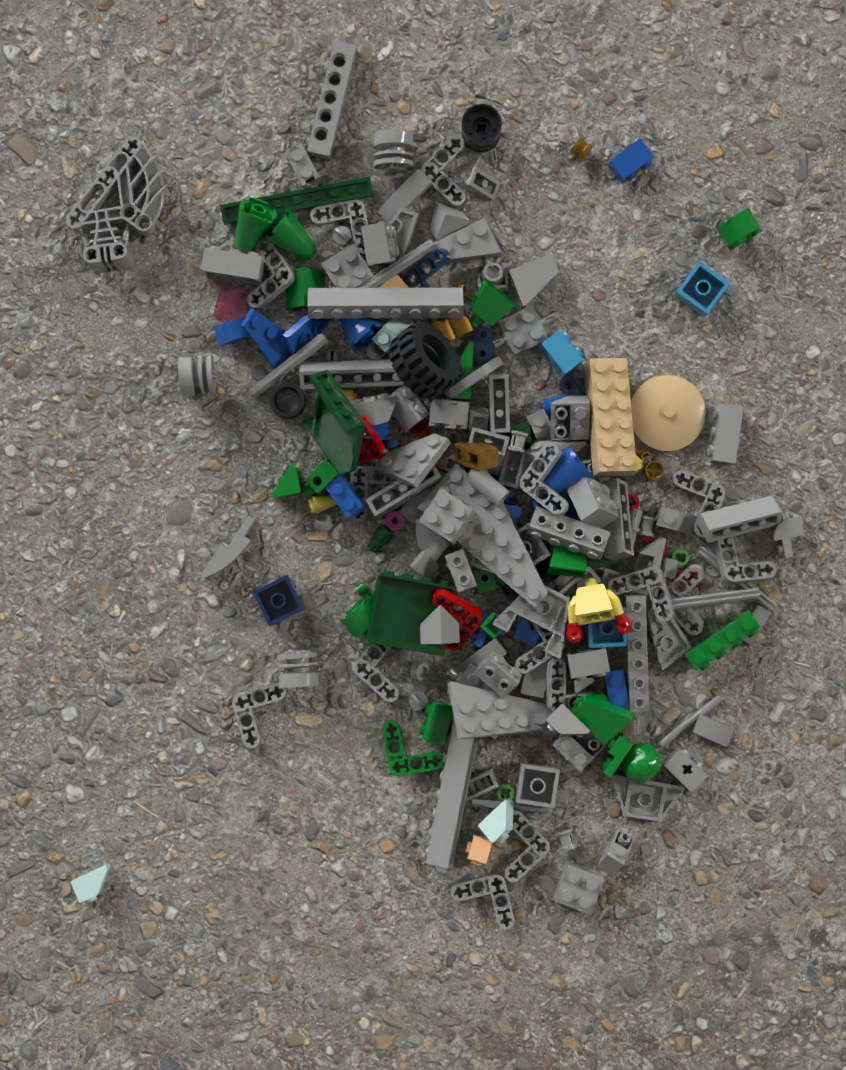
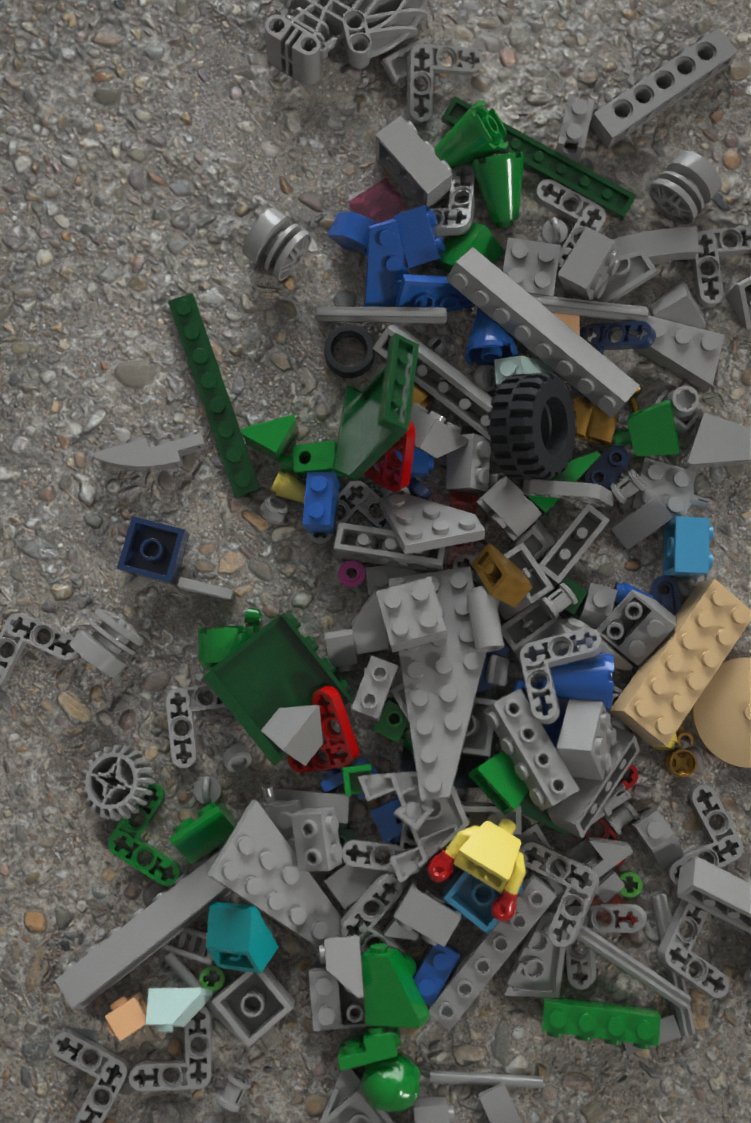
camera: 40 degrees right, 5 degrees down
(176, 205) = (396, 63): none -> light grey plate
(191, 199) = (433, 65): none -> light grey beam
(234, 488) = (214, 396): none -> dark green plate
(272, 305) = (419, 236): none -> blue brick
(325, 596) = (206, 589): none -> light grey tile
(371, 744) = (107, 802): none -> light grey gear
(380, 538) = (321, 578): dark green cone -> none
(501, 758) = (239, 937): none -> teal slope
(502, 346) = (628, 486): none -> light grey bush
(517, 506) = (497, 670): none -> light grey slope
(526, 359) = (641, 522): none -> light grey slope
(537, 617) = (414, 814): none -> light grey tile

